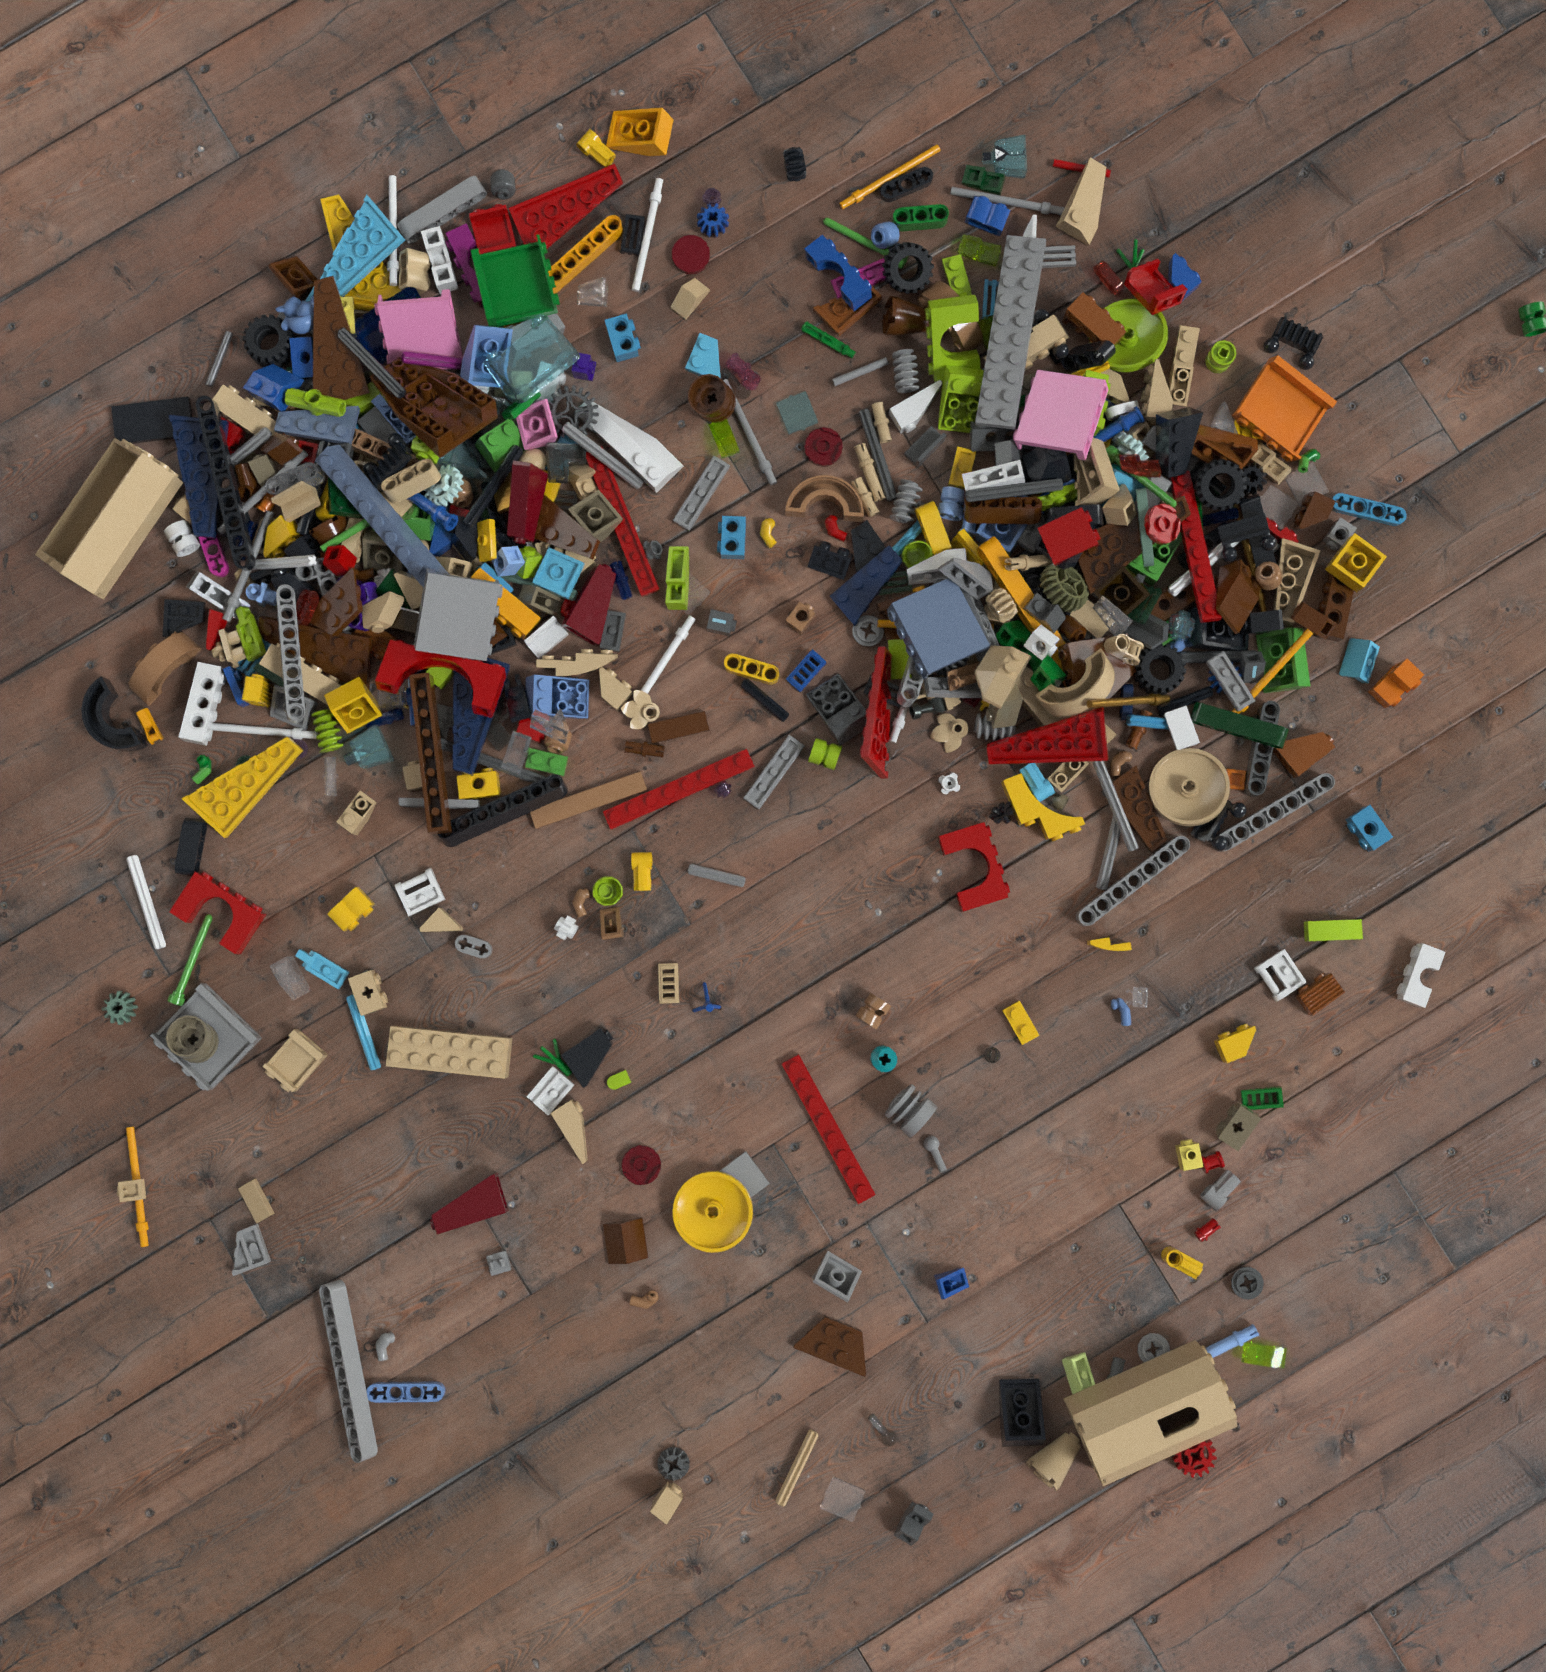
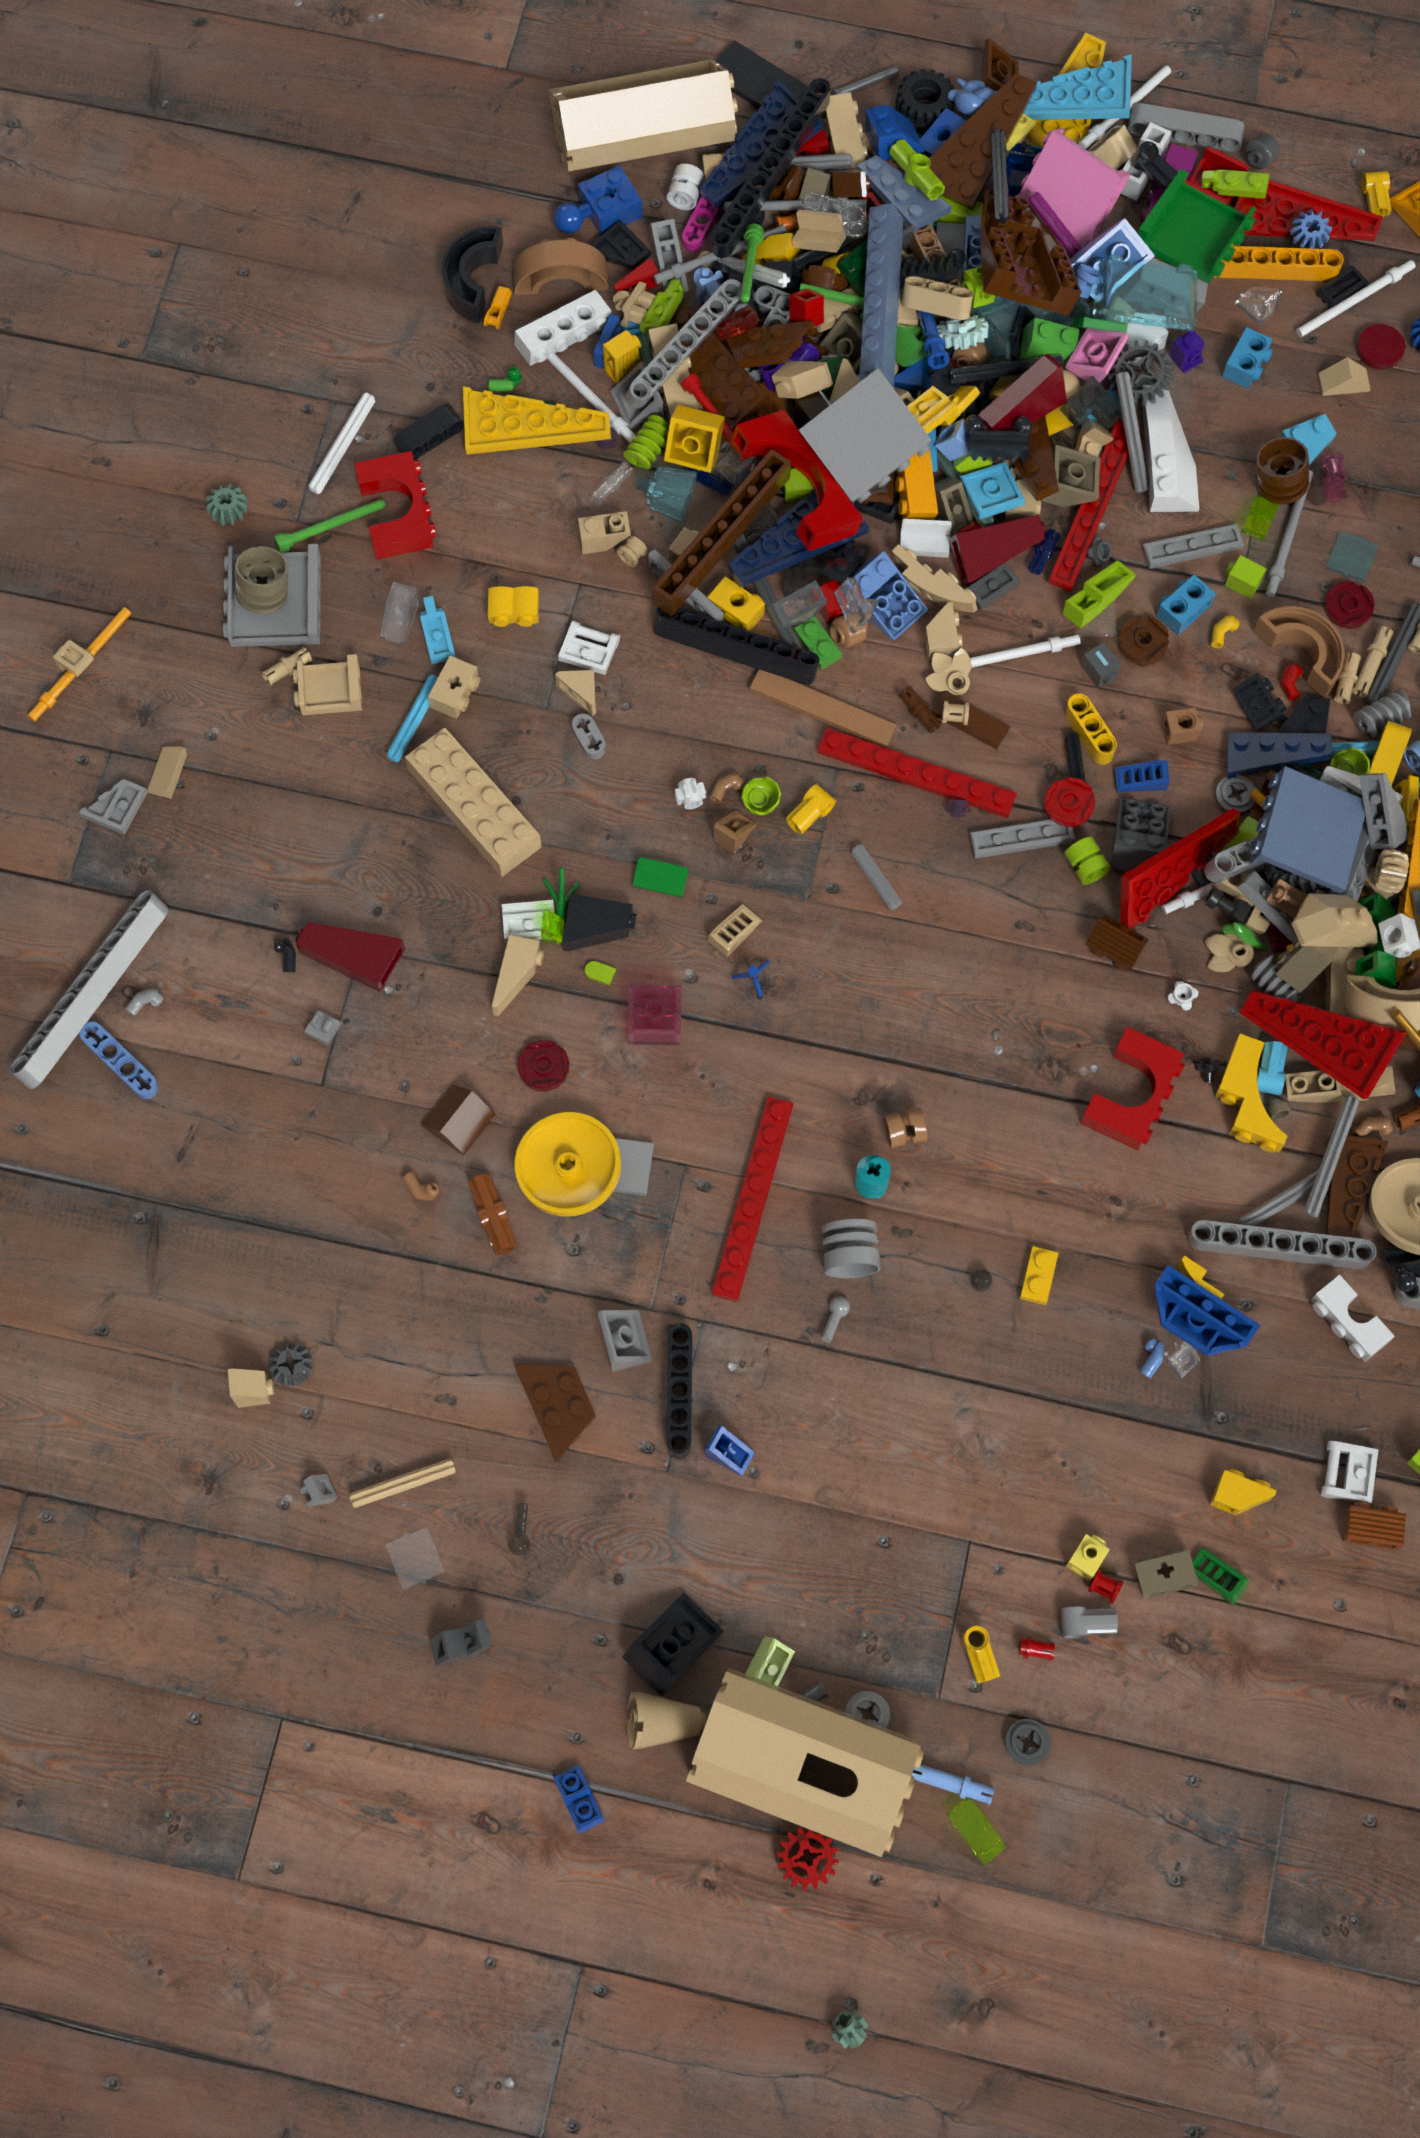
camera: 40 degrees right, 15 degrees down
(151, 602) = (603, 200): none -> blue brick
(258, 1072) = (286, 666): none -> tan pin
(259, 538) = (753, 236): none -> bright green piece
(321, 674) = (692, 386): none -> red piece
(385, 808) = (632, 551): none -> tan wheel
(437, 1240) = (289, 955): none -> black arm
(454, 262) = (1154, 166): none -> black piece
(477, 561) = (932, 408): none -> yellow plate
(486, 383) = (1086, 279): none -> medium blue wheel
(509, 222) = (1236, 183): none -> lime hinge
(536, 545) = (999, 443): none -> black gear
(570, 1085) = (552, 928): none -> clear neon green slope
(575, 214) = (1310, 221): none -> medium blue gear
(598, 993) = (660, 877): none -> green slope
(668, 734) = (952, 711): none -> tan bush
(675, 1079) = (654, 1014): none -> clear pink brick
(698, 1277) = (492, 1214): none -> dark orange piece
(738, 575) = (1141, 653): none -> reddish brown plate
(749, 486) = (1244, 576): none -> lime brick
(758, 1516) = (319, 1489): none -> light grey tile
(782, 727) = (1069, 802): none -> red tile
(886, 789) = (1116, 942): none -> reddish brown brick
(899, 1284) = (679, 1378): none -> black beam
(951, 715) = (1245, 934): none -> bright green bar
(1050, 1538) = (578, 1799): none -> blue slope
(1130, 968) = (1200, 1316): none -> blue wedge
(1224, 889) = (1363, 1338): none -> white arch
(1295, 1519) = (849, 2029): none -> sand green gear

